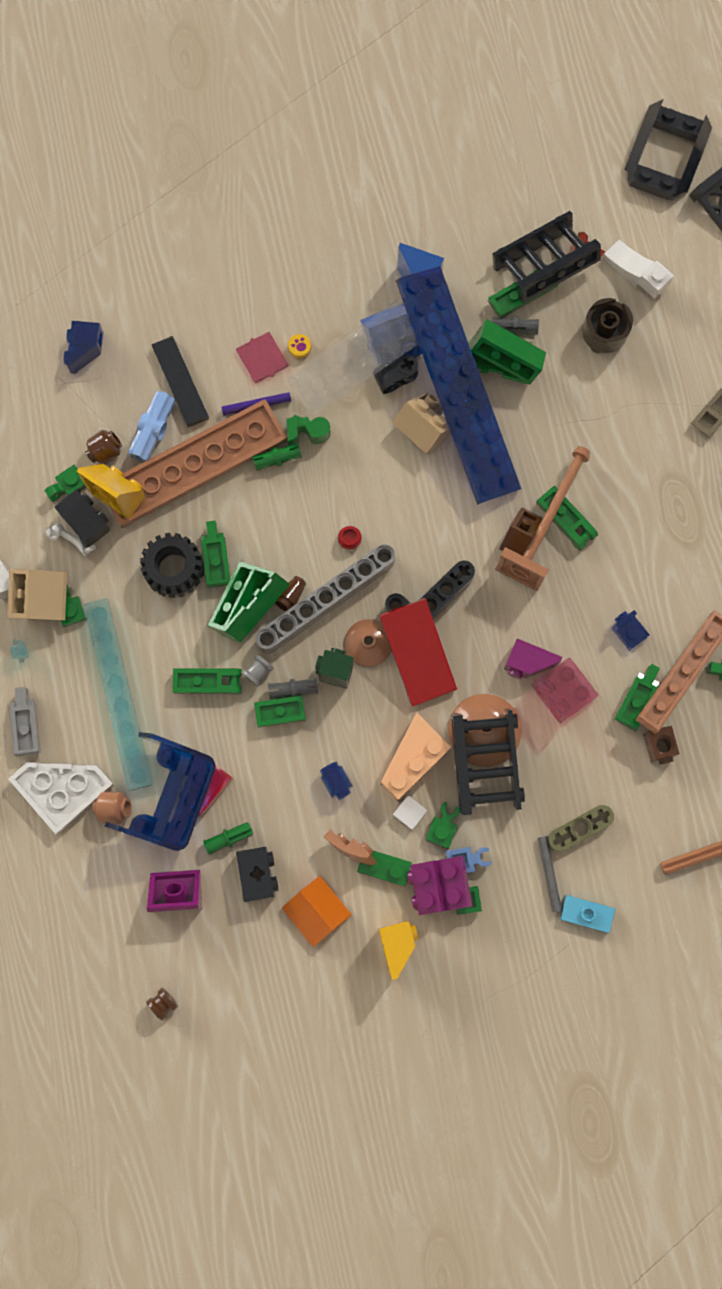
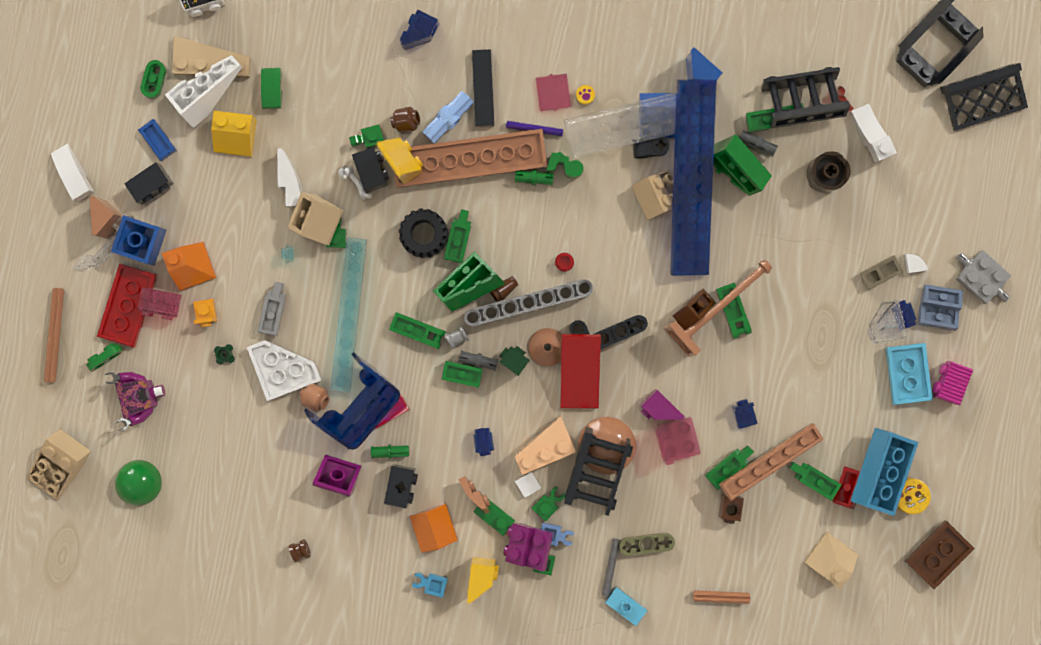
camera: 20 degrees right, 10 degrees up
(343, 979) = (433, 585): none -> dark azure plate

